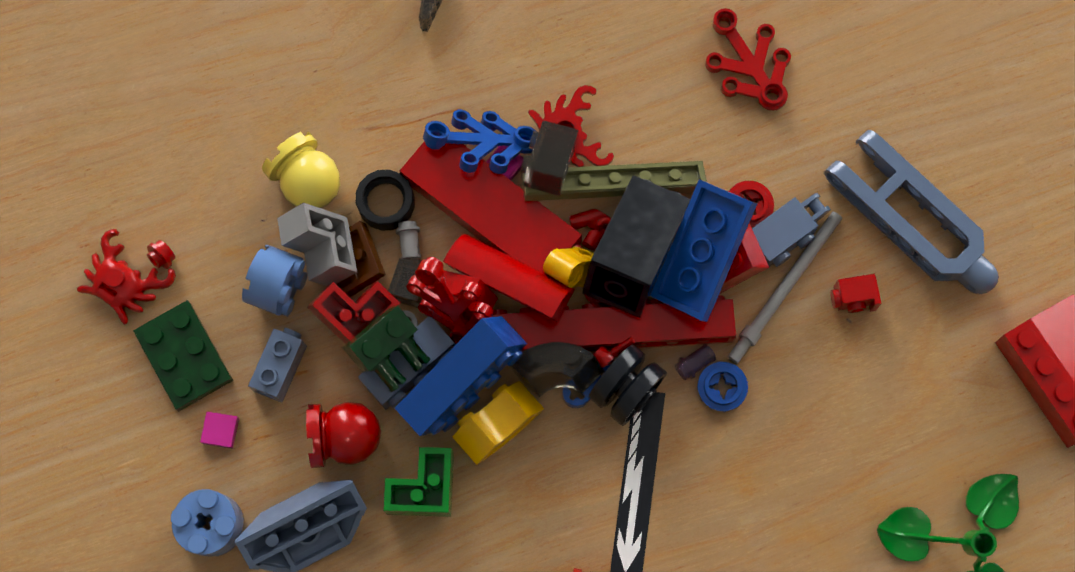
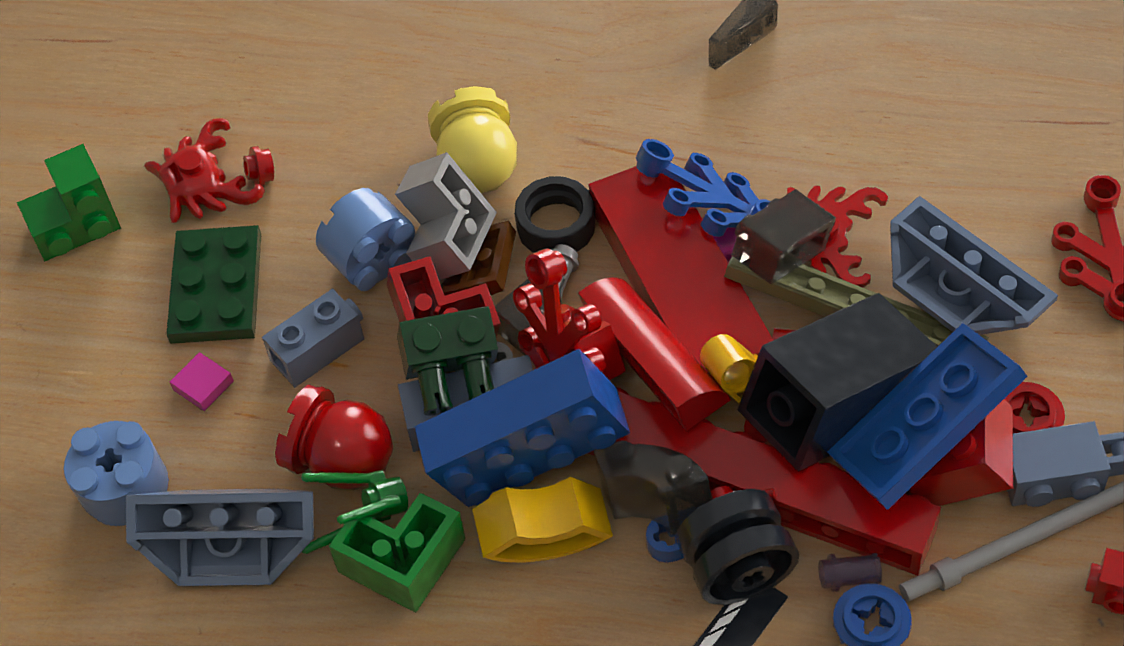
camera: 30 degrees right, 20 degrees down
(50, 352) = (73, 209): none -> green brick
(392, 460) = (379, 501): none -> green plant
(670, 131) = (960, 275): none -> sand blue wedge

